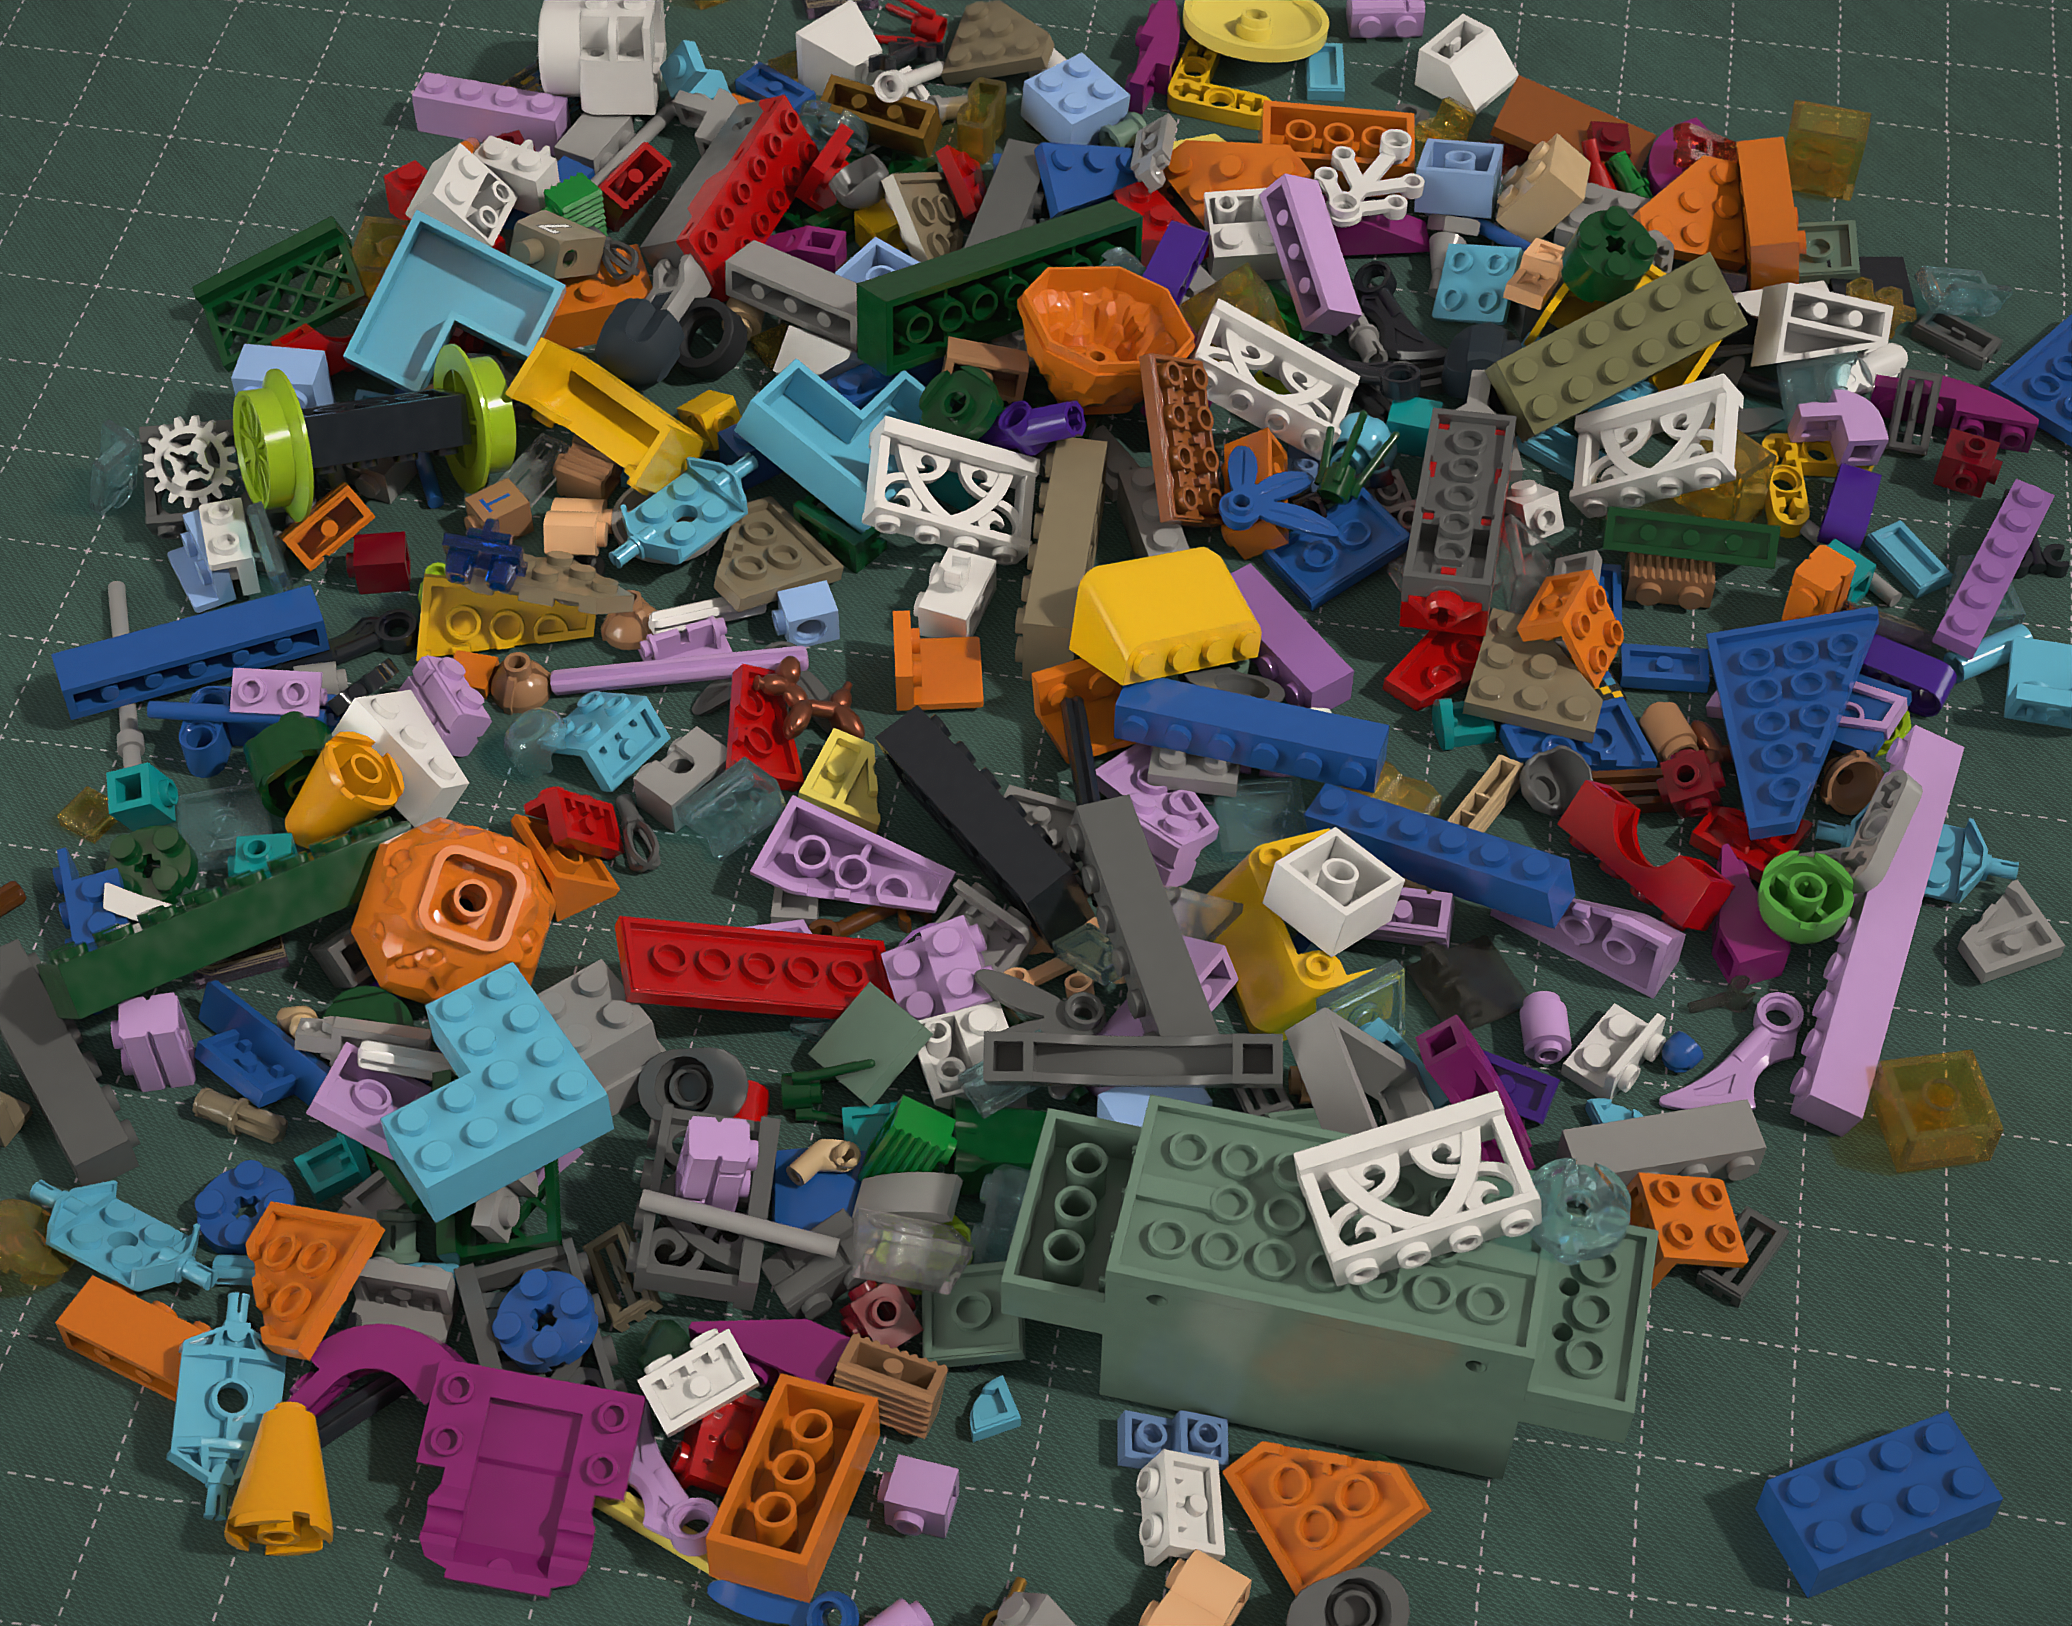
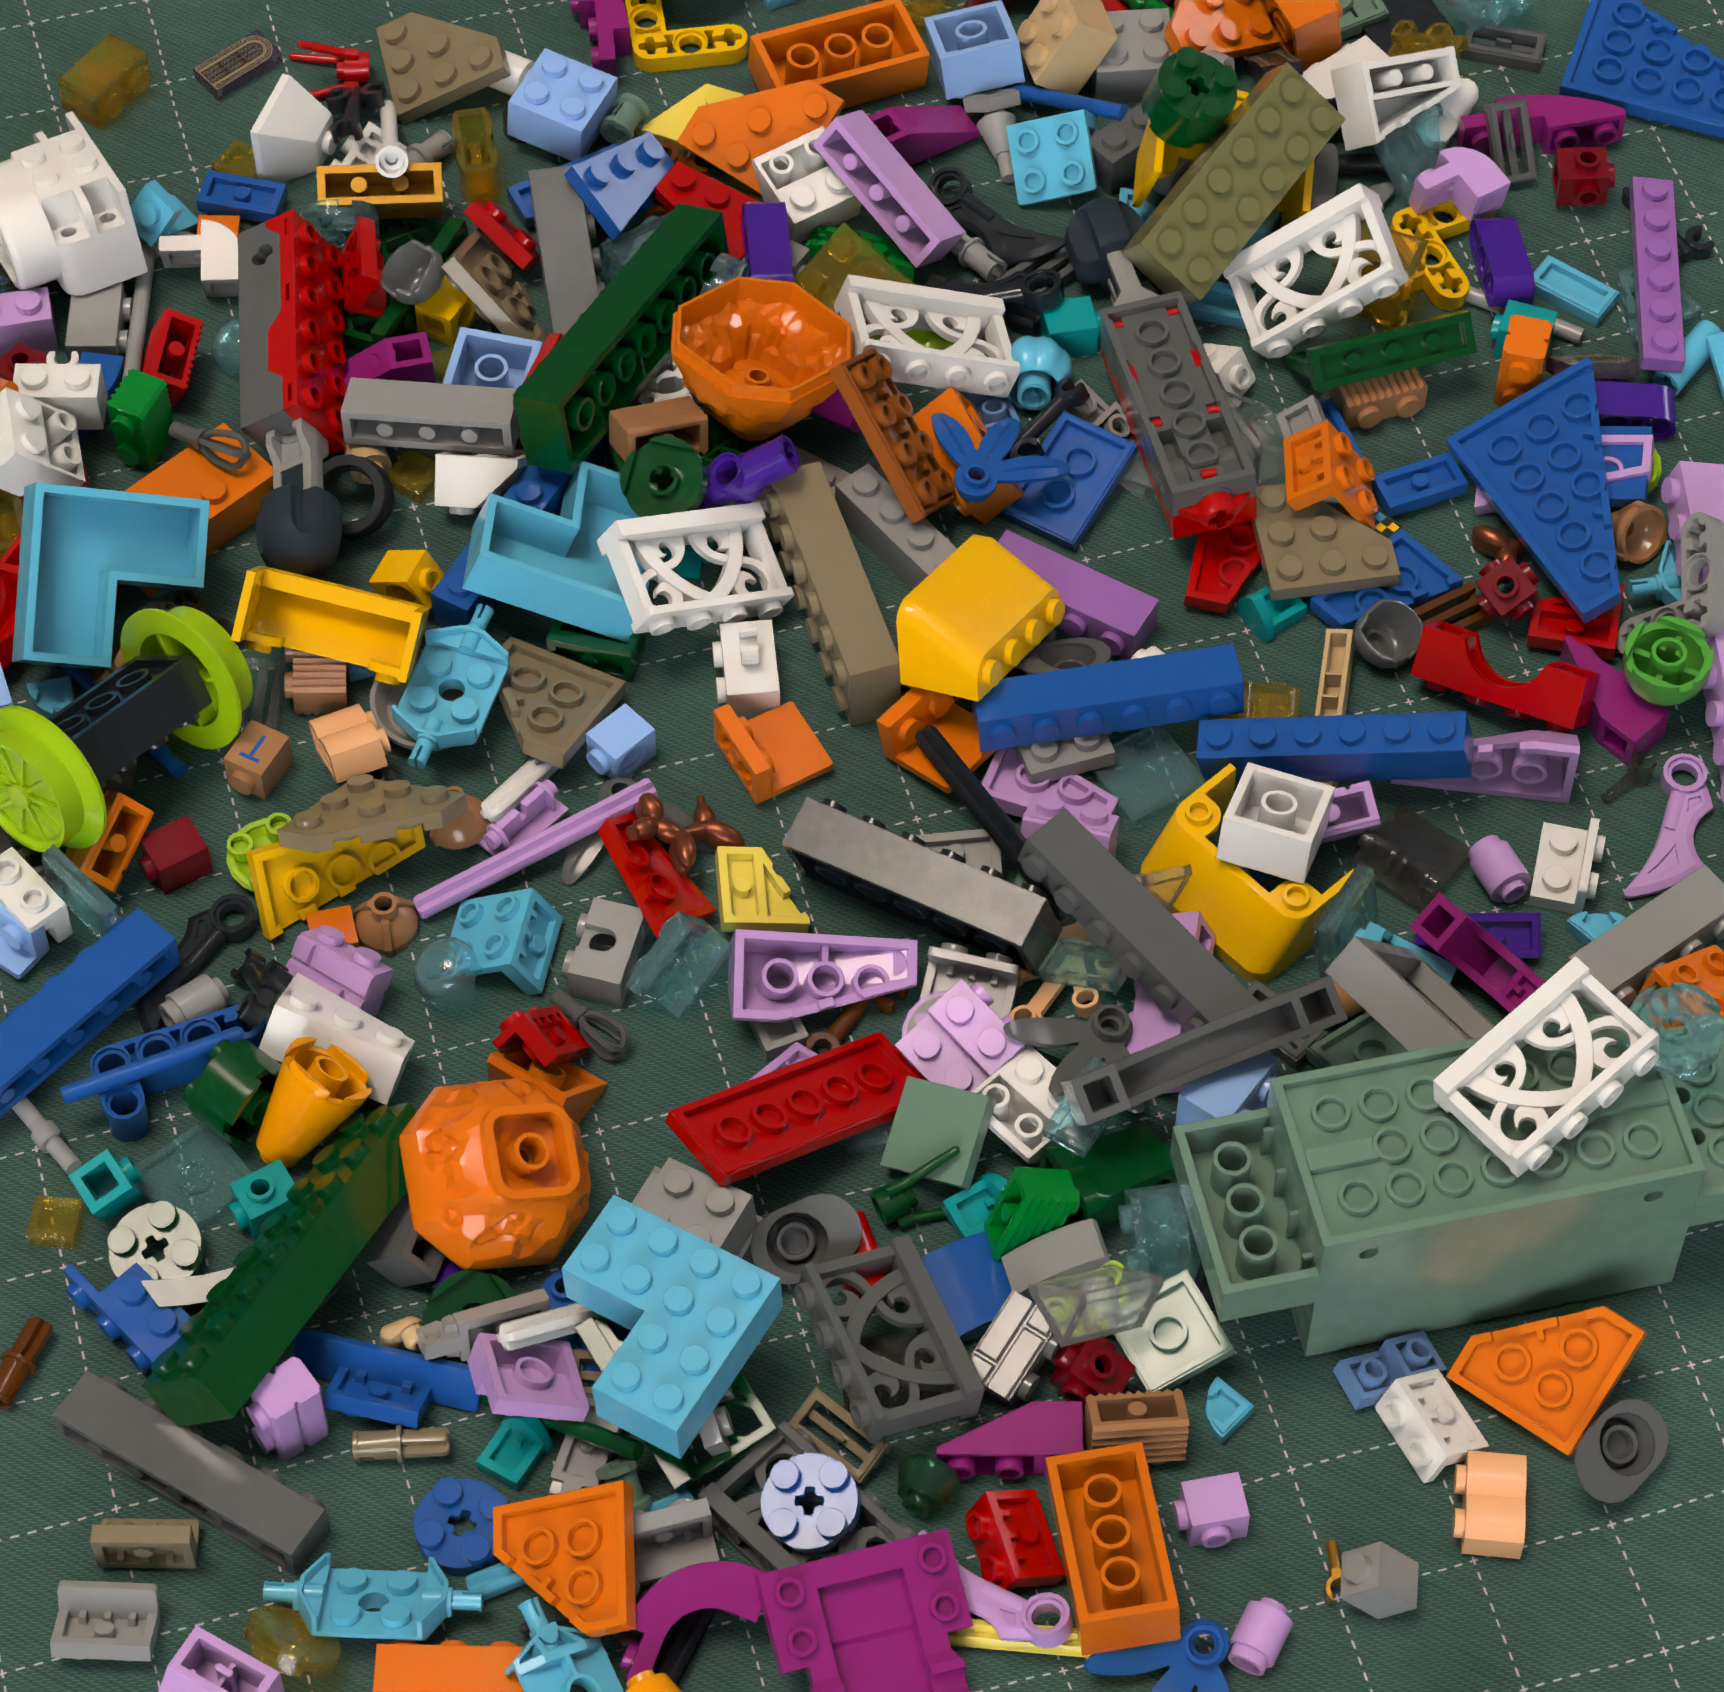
camera: 25 degrees left, 5 degrees up
(277, 692) = (184, 1029): lavender hinge -> none
(487, 551) = (315, 807): clear blue hips -> none
(544, 245) = (157, 459): dark tan torso -> none
(697, 1381) = (981, 1495): white bracket -> none
(716, 1162) = (893, 1302): lavender brick -> none
(739, 1223) = (938, 1343): light grey bar -> none
(824, 1156) = (959, 1251): tan arm -> none
(1153, 151) = (674, 131): light grey hinge -> none
(1338, 481) = (1046, 415): dark green plant -> none
(1348, 207) = (897, 124): white plant -> none
(1537, 275) = (1113, 130): light nougat slope -> none
(1667, 730) = (1458, 547): medium nougat brick -> none
(1681, 1053) = (1621, 844): blue hinge -> none

